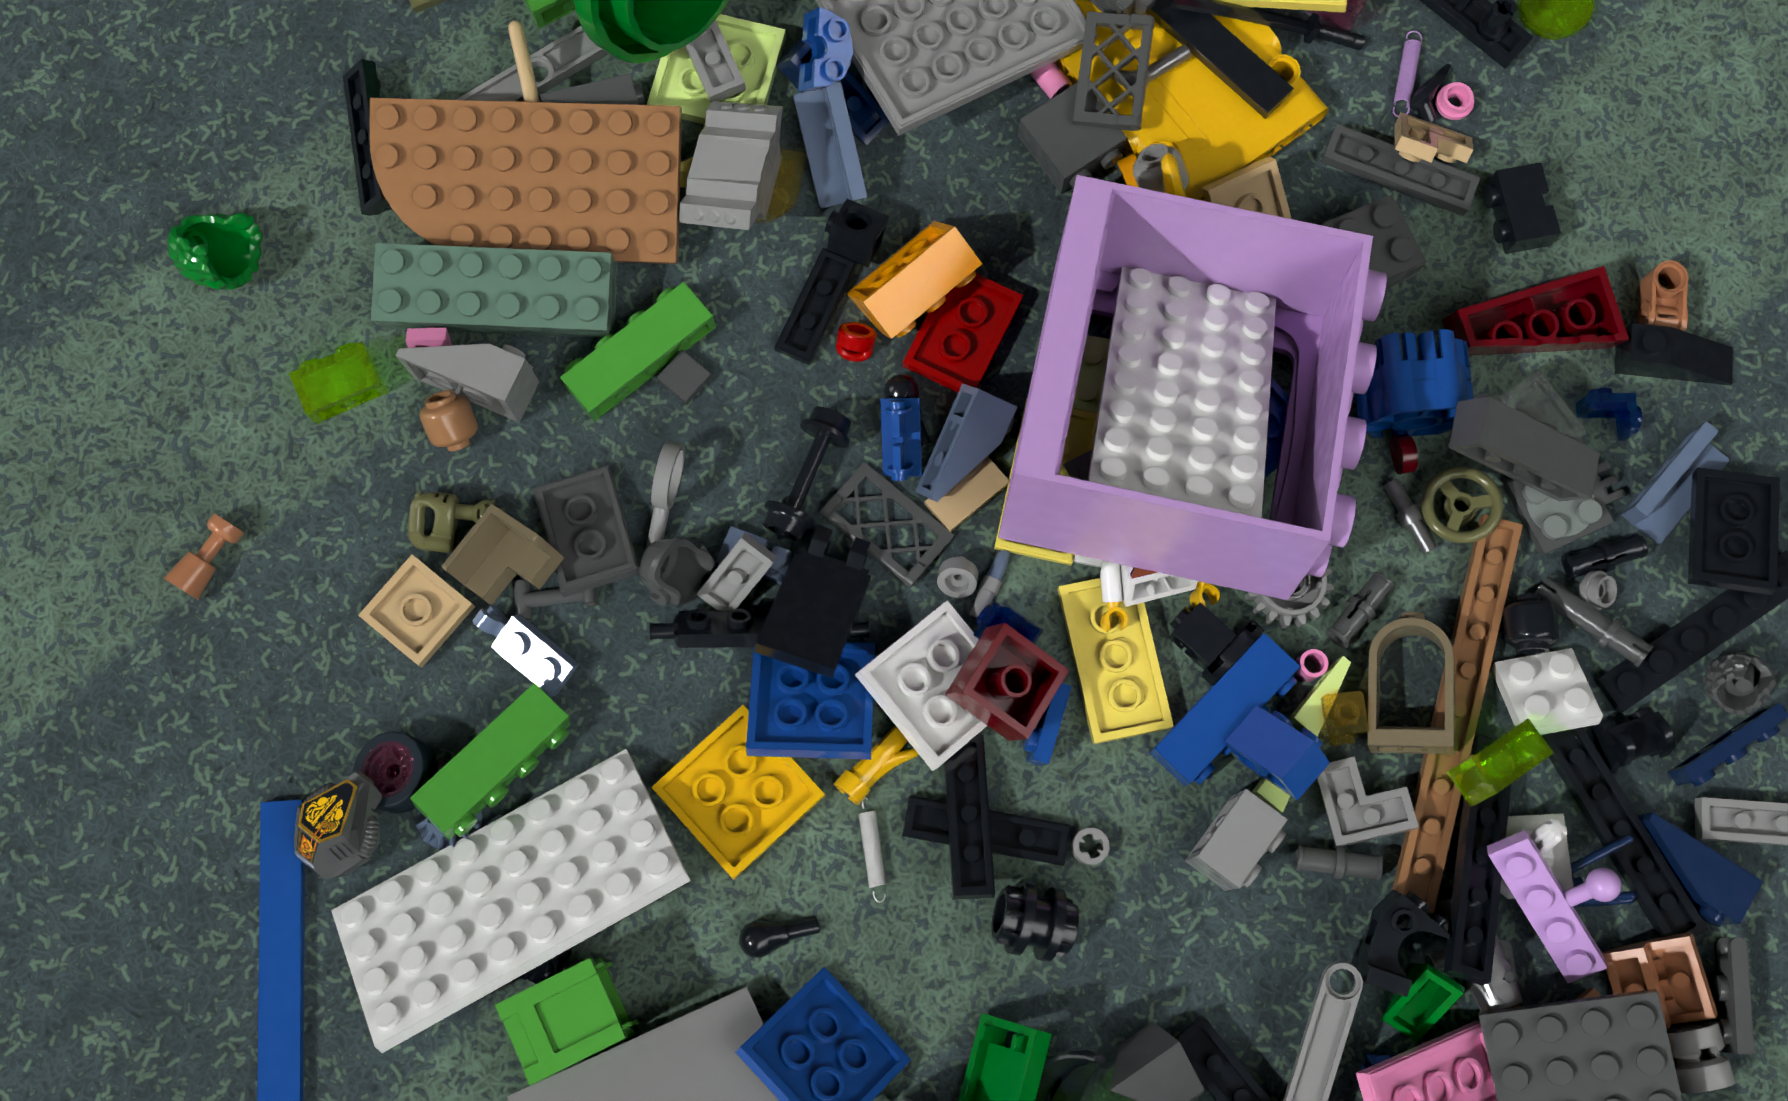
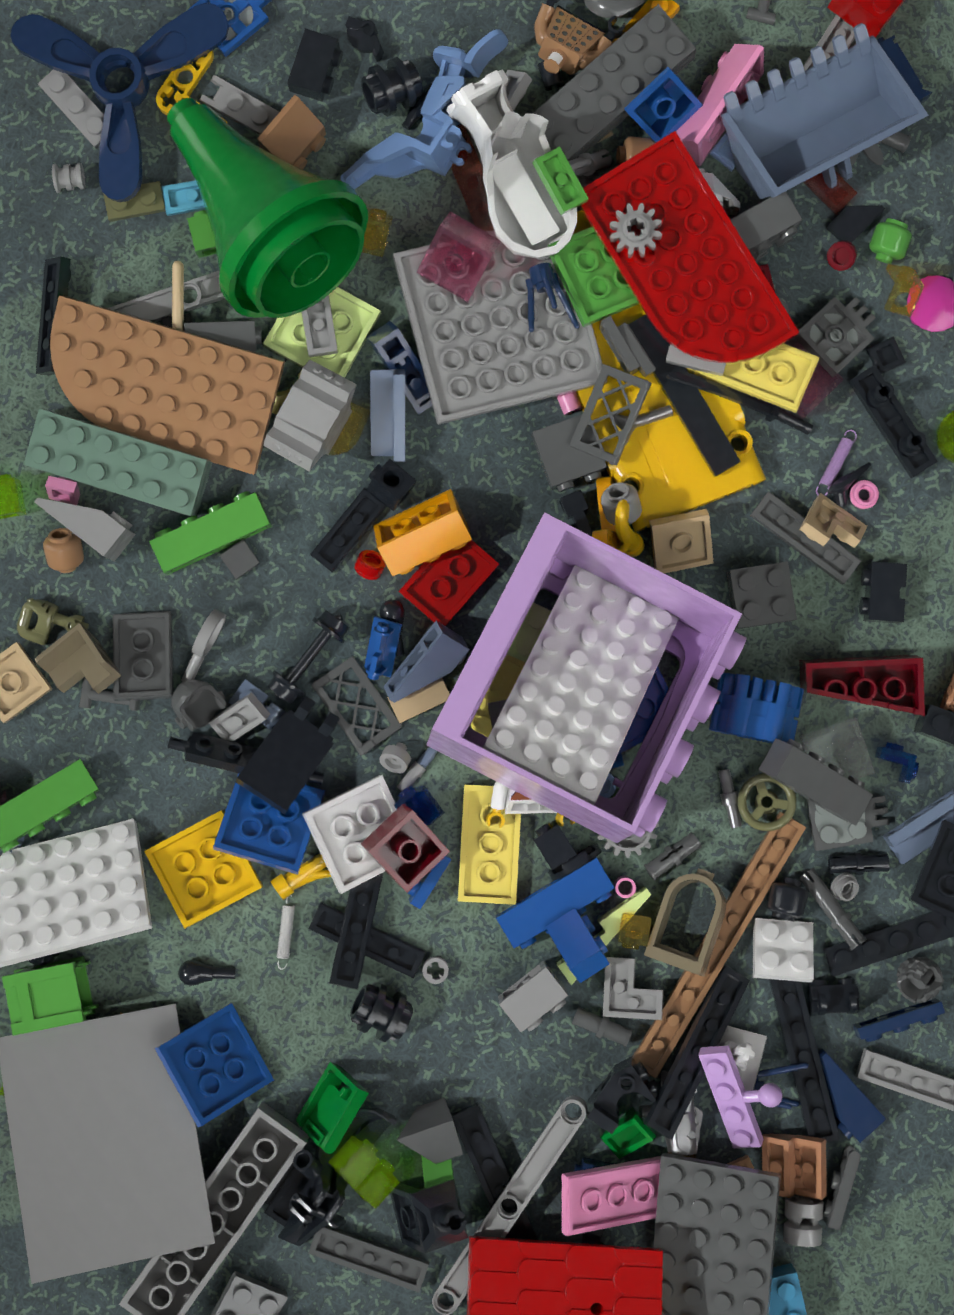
camera: 15 degrees right, 10 degrees up
(527, 649) = (81, 730): plate -> none
(830, 47) = (403, 351): blue cylinder -> none
(1404, 454) = (739, 753): dark red tile -> none
(1500, 762) = (730, 992): clear neon green brick -> none

